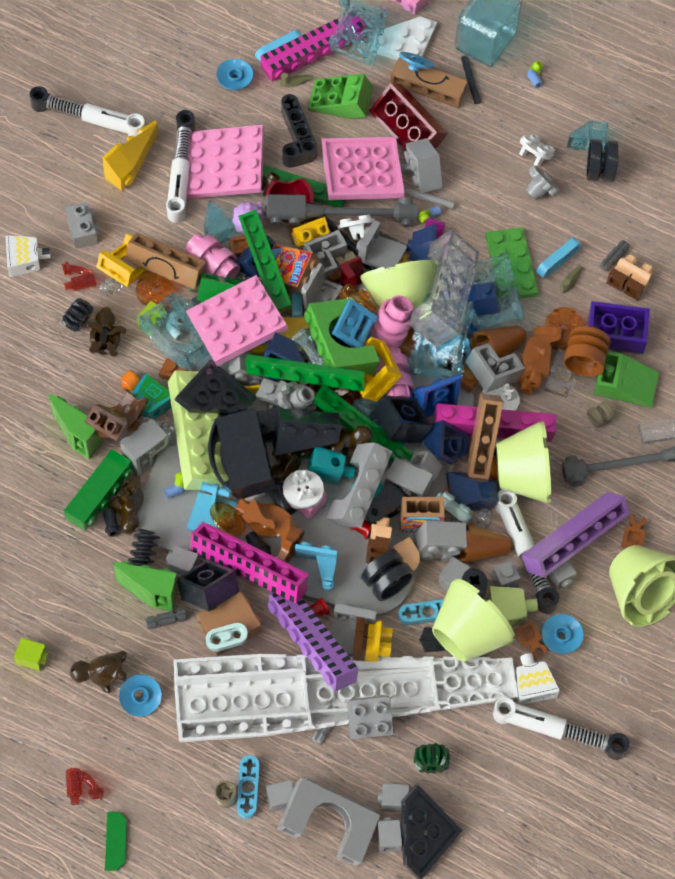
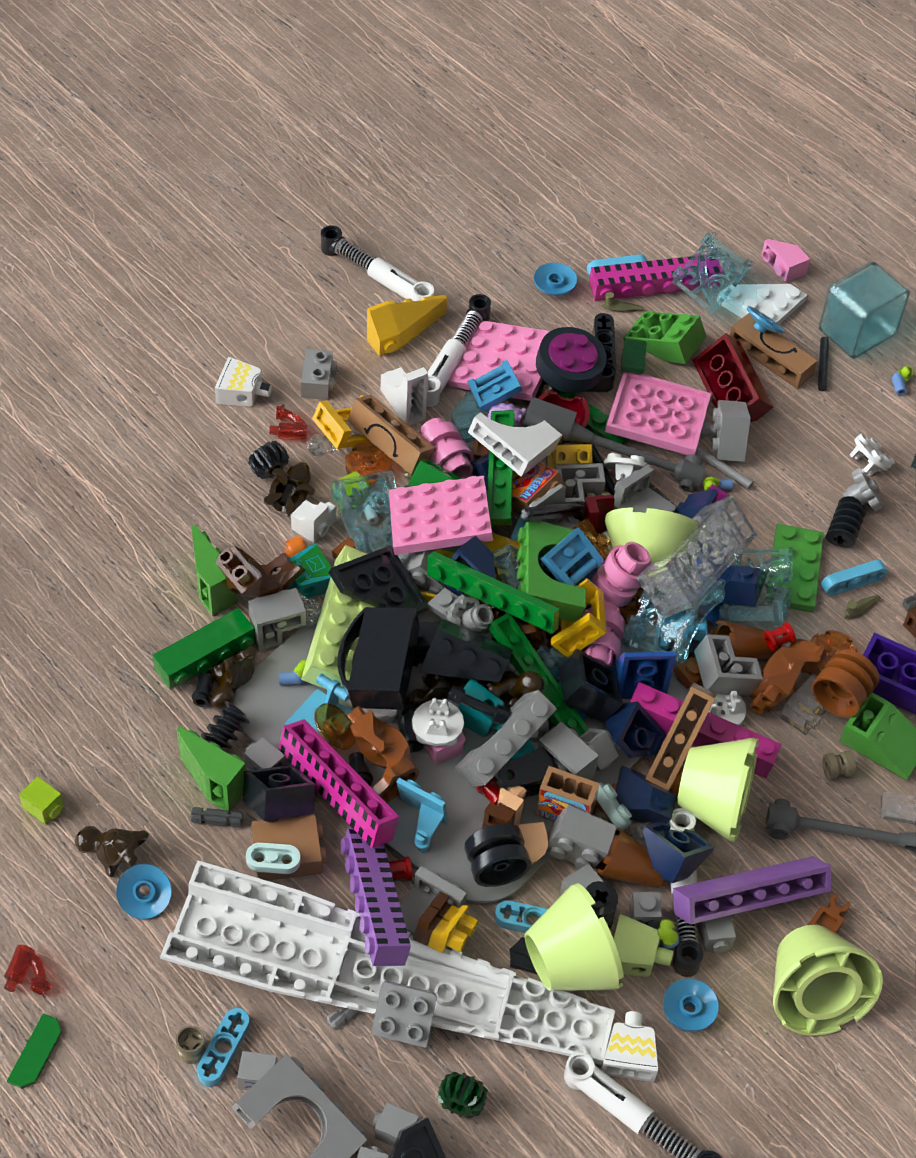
camera: 20 degrees right, 10 degrees down
(133, 353) = (313, 520): none -> white brick
(160, 220) = (406, 393): none -> white arch
(232, 193) = (495, 386): none -> dark azure plate
(272, 242) = (516, 446): none -> white arch
(280, 147) = (570, 359): none -> wheel
(322, 288) = (553, 511): none -> black axle
(325, 126) = (633, 356): none -> dark green slope
(346, 466) = (457, 696): none -> black bar
(512, 526) = (675, 852): none -> dark blue slope
(525, 329) = (785, 630): none -> red bush
(529, 590) = (669, 937): none -> lime arm
(529, 636) = (647, 993): dark orange plate -> none
(537, 214) = (846, 522): none -> black piece

